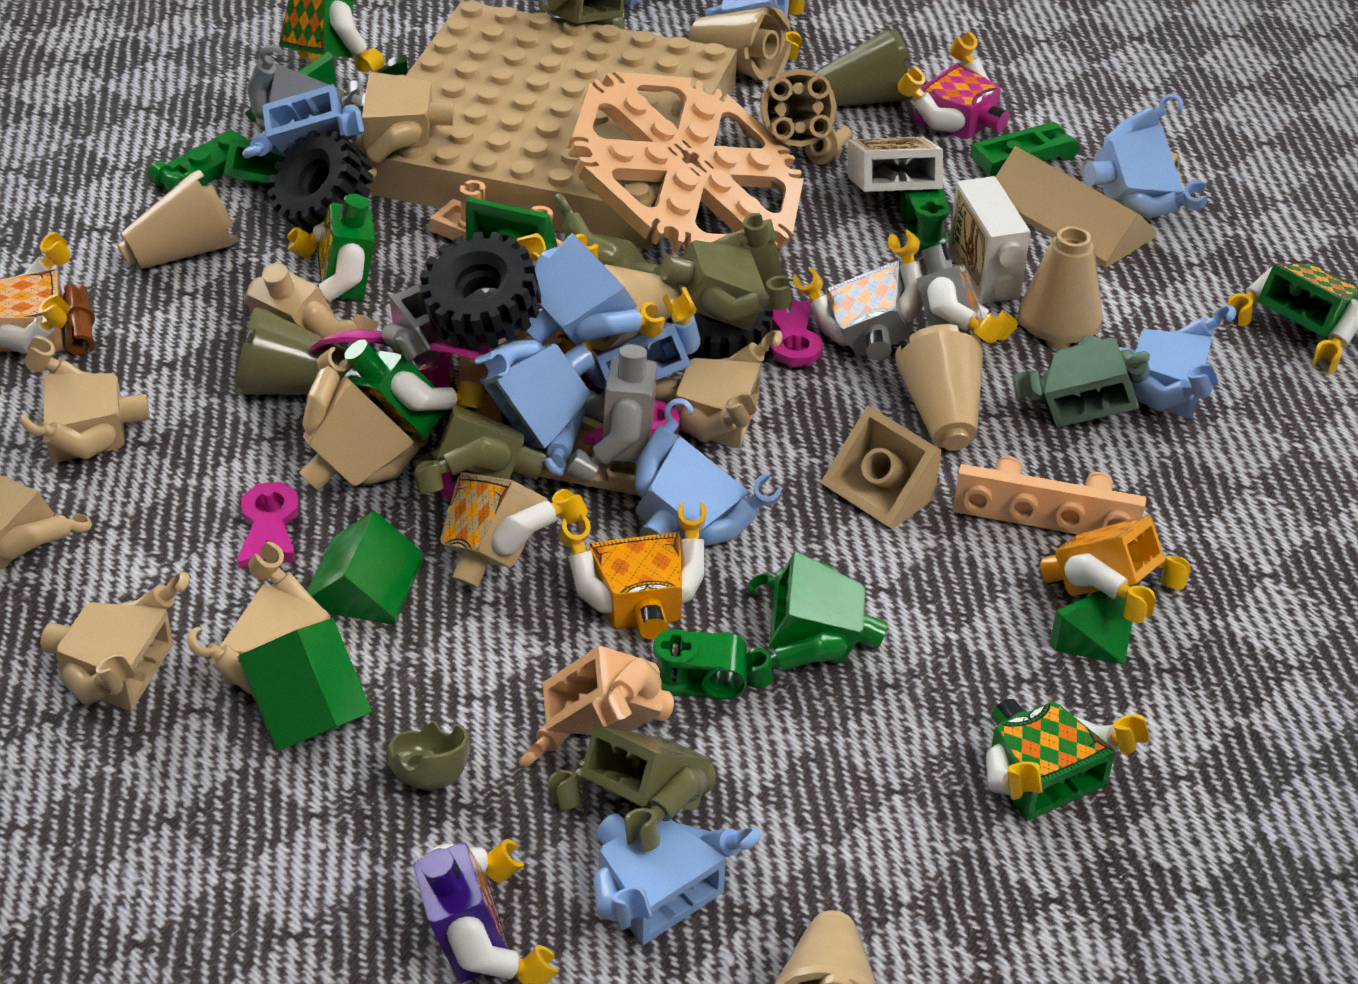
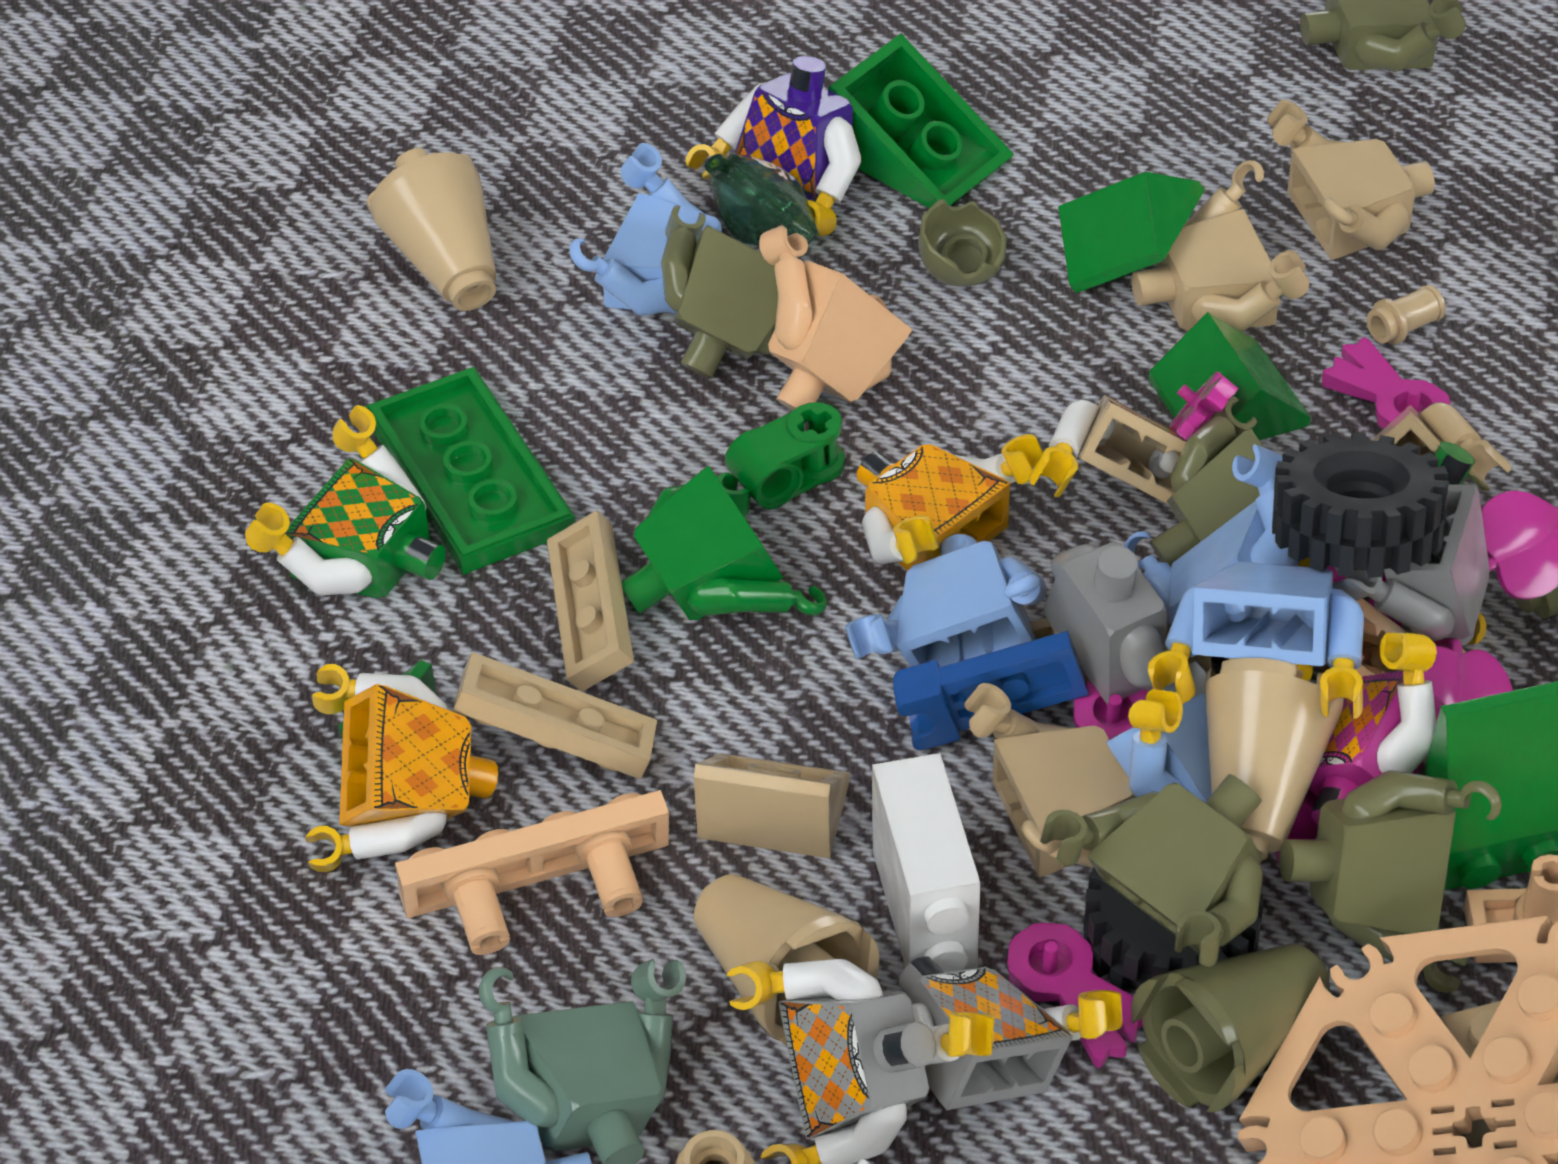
camera: 150 degrees right, 5 degrees up
(196, 560) = (1393, 320): none -> tan pin
(358, 896) = (917, 127): none -> green slope
(419, 528) = (1201, 405): none -> dark pink piece
(538, 885) = (758, 197): none -> clear green hat
(726, 450) = (1028, 673): none -> blue plate
(837, 376) = (925, 862): none -> white brick
(911, 635) = (589, 601): none -> tan plate
(929, 796) = (471, 470): none -> green tile
(992, 553) = (555, 715): none -> tan plate

